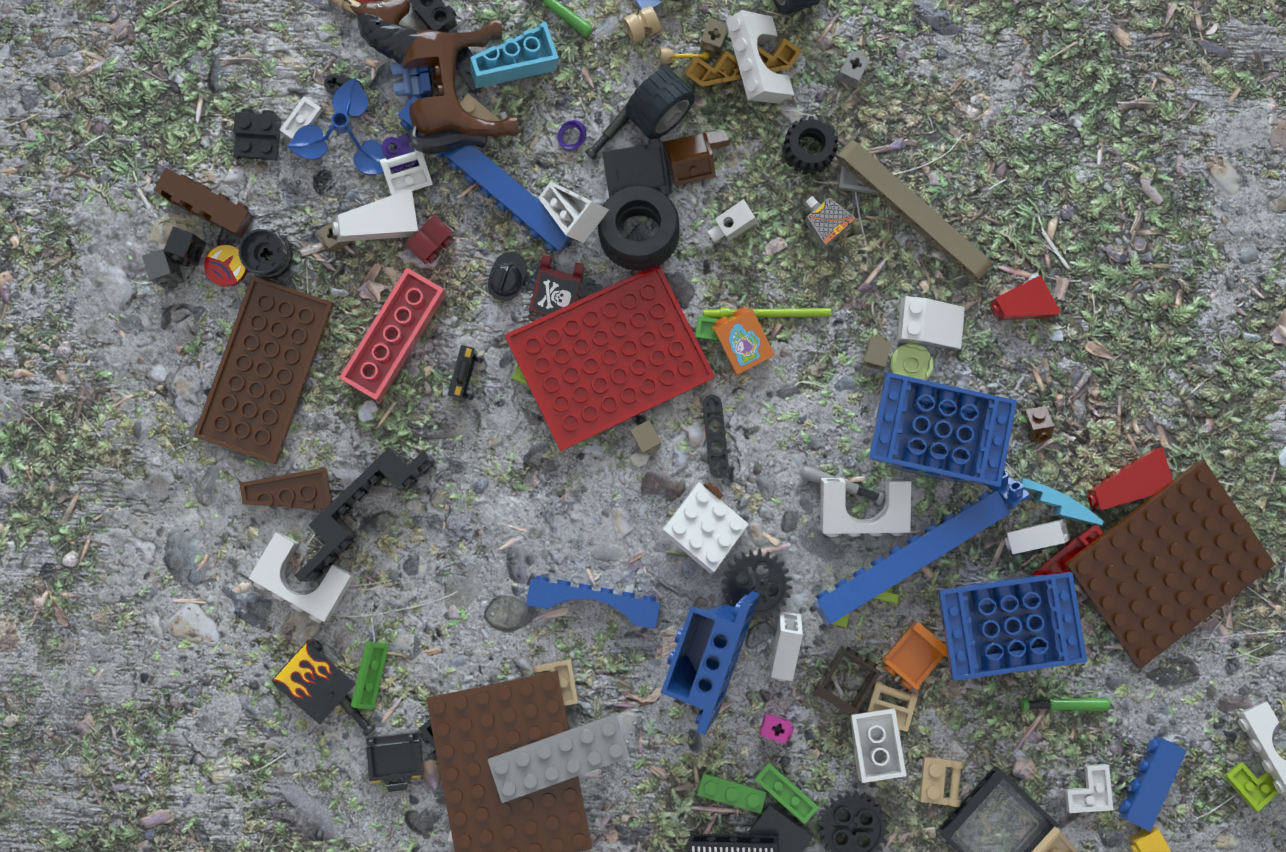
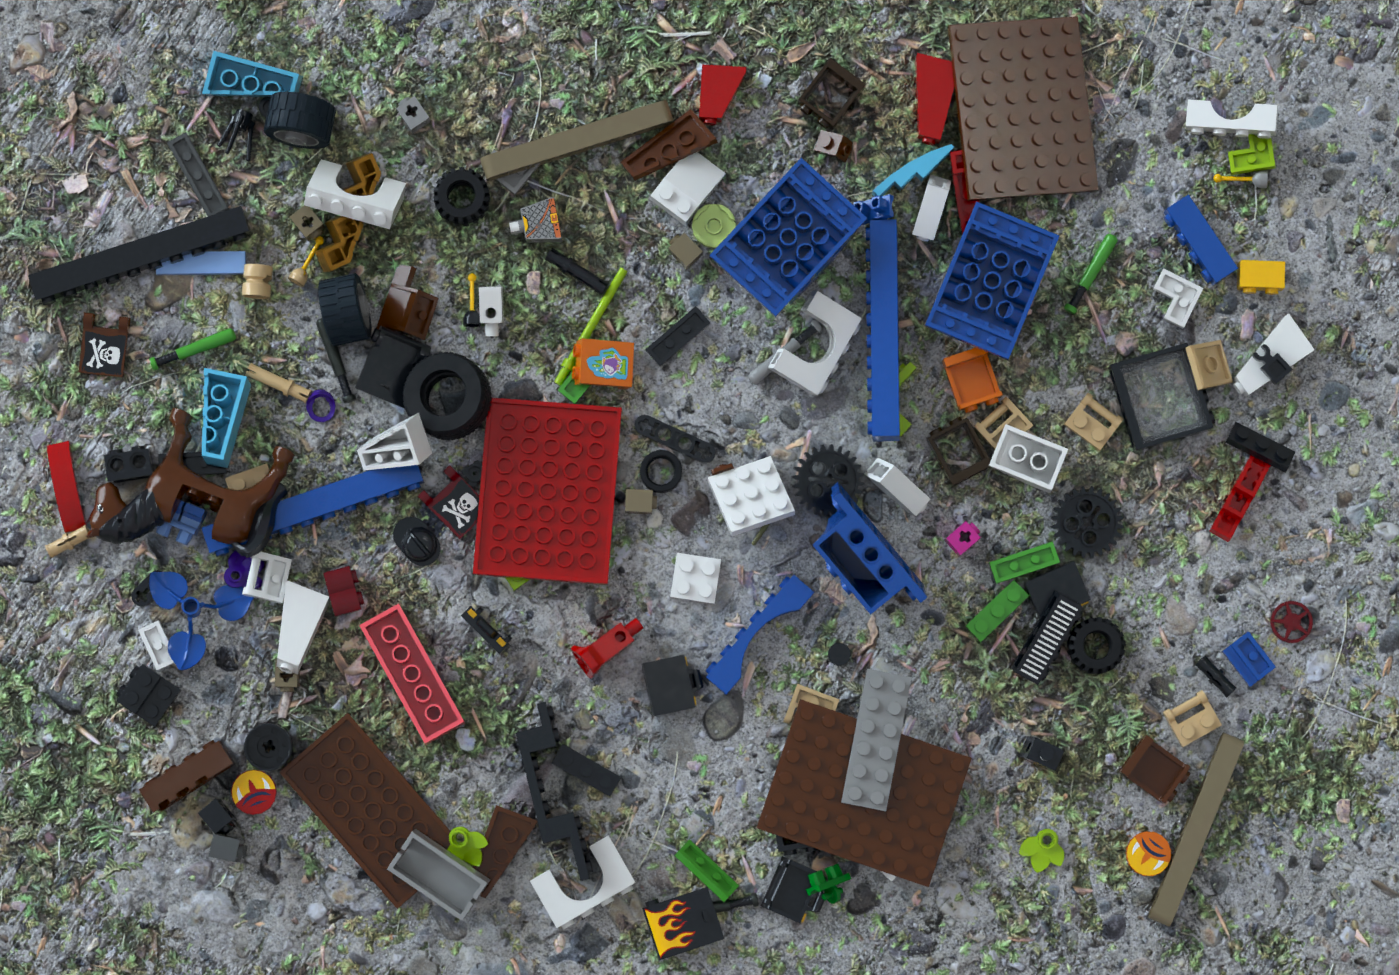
camera: 60 degrees left, 0 degrees up
(235, 453) = (438, 874): none -> light grey piece
(273, 465) = (470, 848): none -> lime plate
(398, 525) = (586, 770): none -> black plate
(413, 788) = (831, 891): none -> green hips
(508, 482) = (607, 647): none -> red piece
(508, 553) = (670, 685): none -> black piece
(571, 99) = (286, 386): none -> tan pin
(610, 521) = (695, 578): none -> white plate
(616, 679) = (839, 654): none -> black tile
(697, 440) = (663, 454): none -> black tyre
(715, 210) = (472, 317): none -> hinge
(802, 388) = (677, 336): none -> black plate
(805, 274) = (570, 267): none -> black pin
(958, 290) = (670, 145): none -> reddish brown wing
(1102, 397) = (842, 75): none -> dark brown window
(1234, 803) = (1259, 178): none -> hinge

